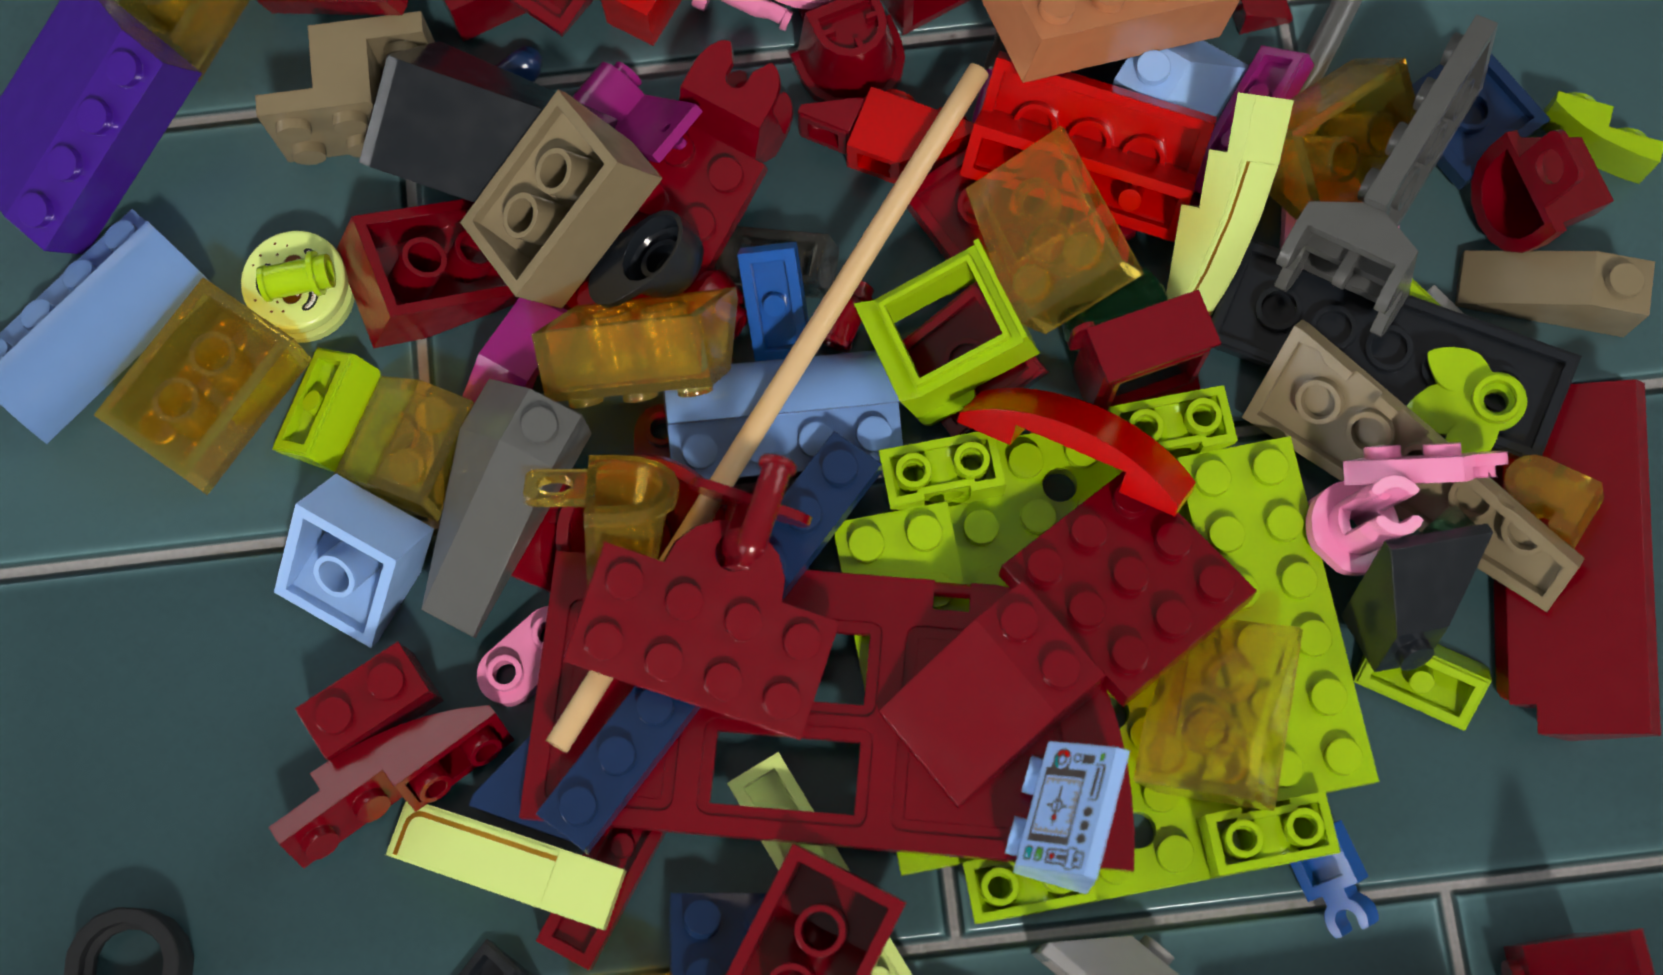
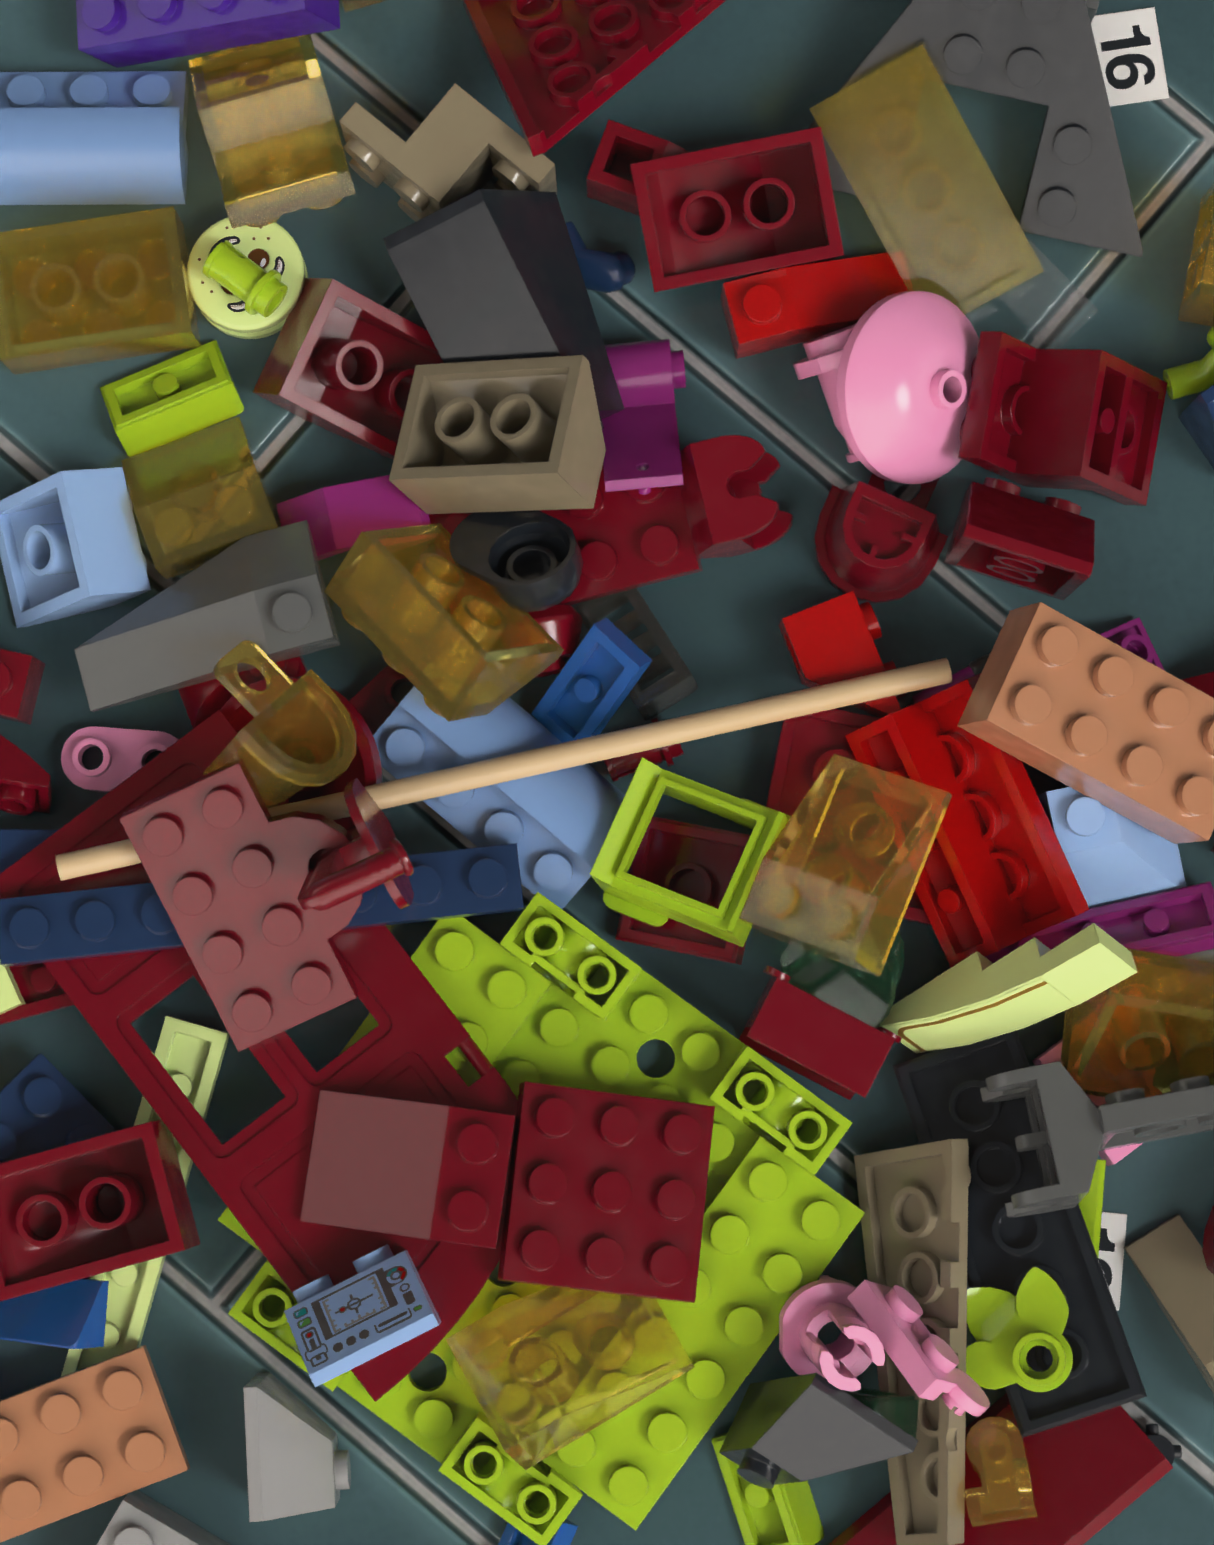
camera: 45 degrees right, 10 degrees up
(222, 180) = (270, 130): none -> clear yellow bracket
(829, 122) = (797, 583): dark red slope -> none
(1150, 469) = (702, 1049): red slope -> none

